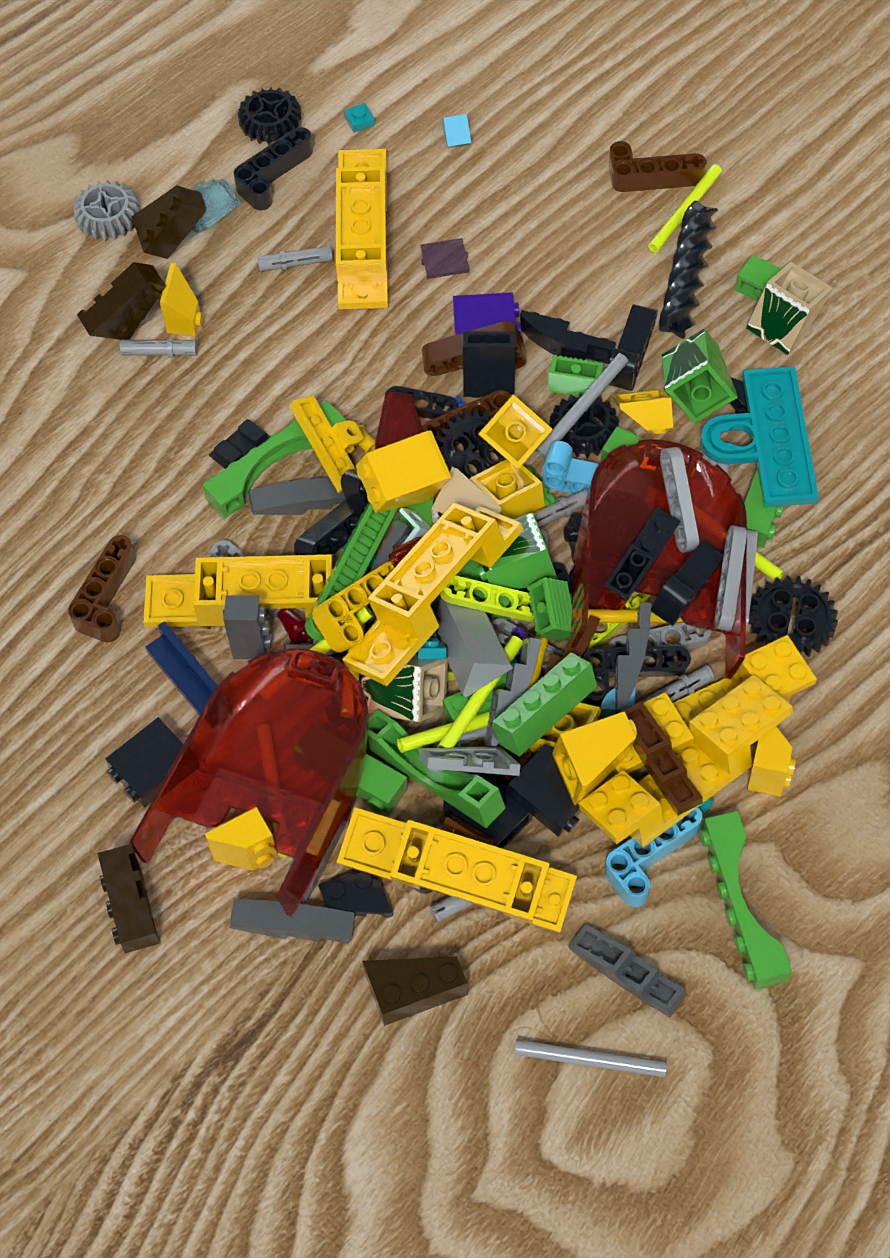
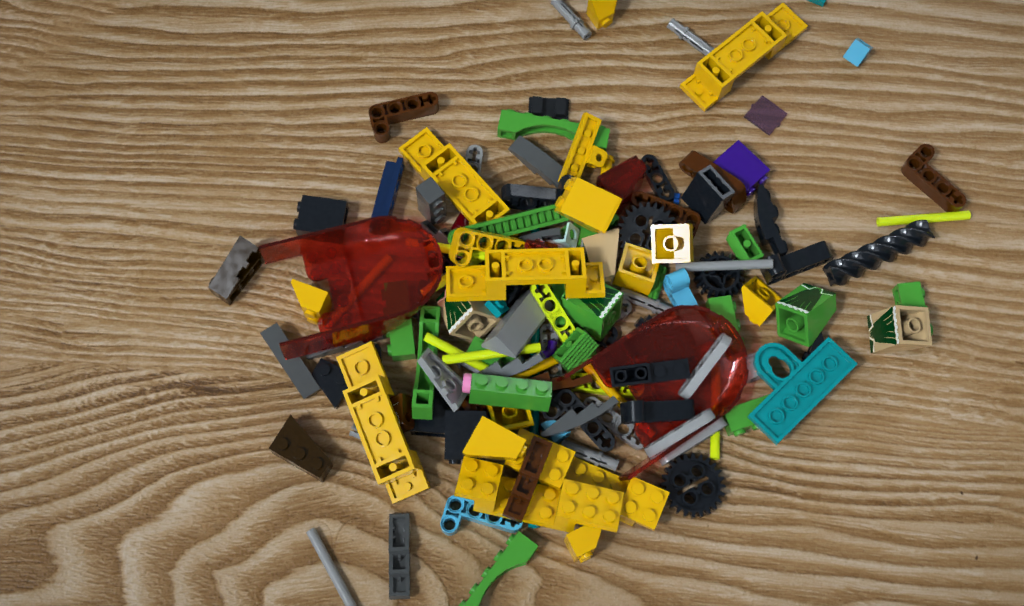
camera: 45 degrees right, 10 degrees up
(496, 739) = (466, 383): none -> bright pink tile

